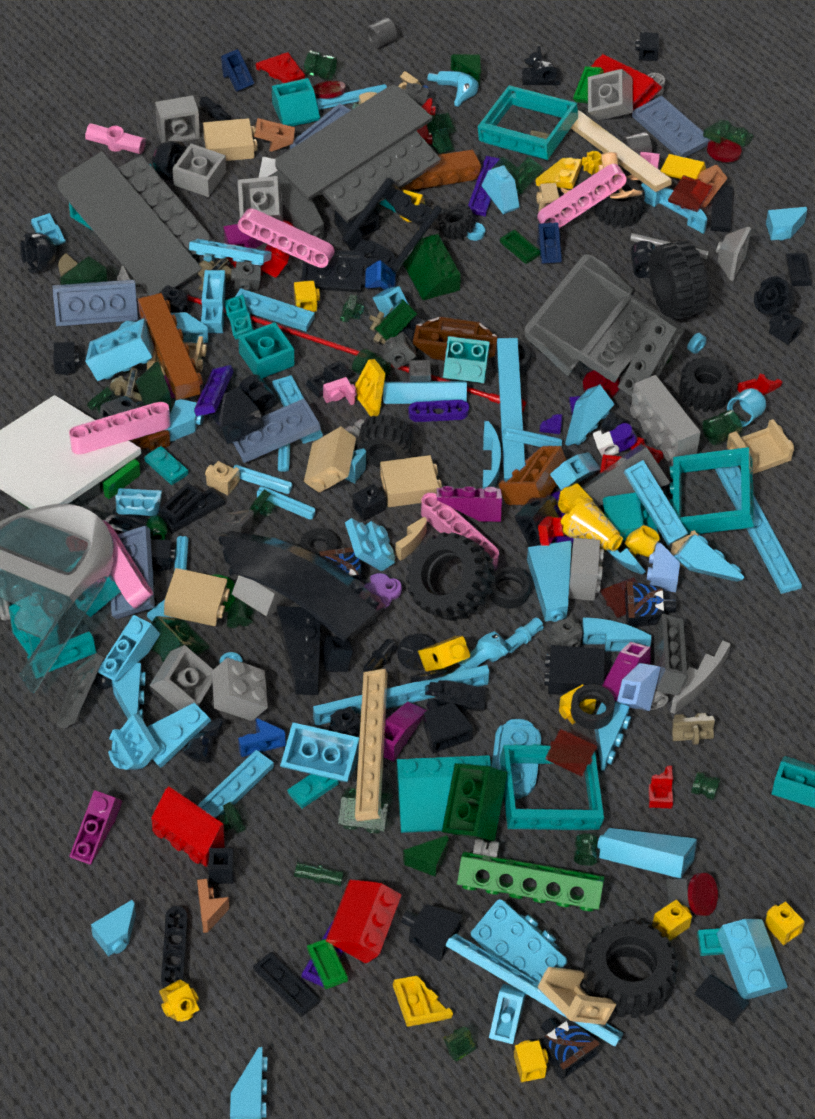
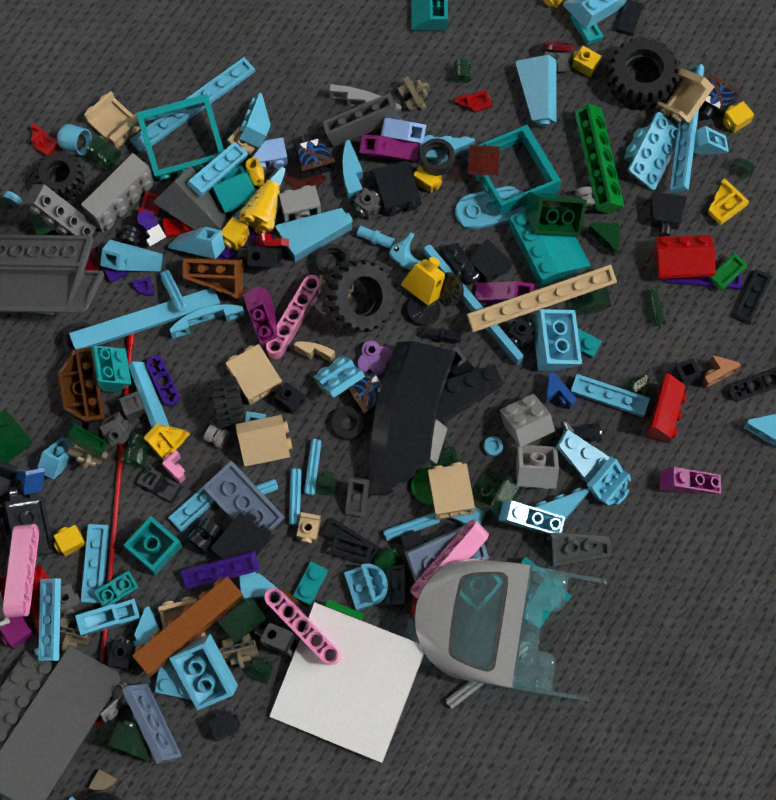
camera: 110 degrees left, 20 degrees up
(351, 309) = (71, 496): clear green tile -> none
(586, 846) = (553, 133): clear green wheel -> none

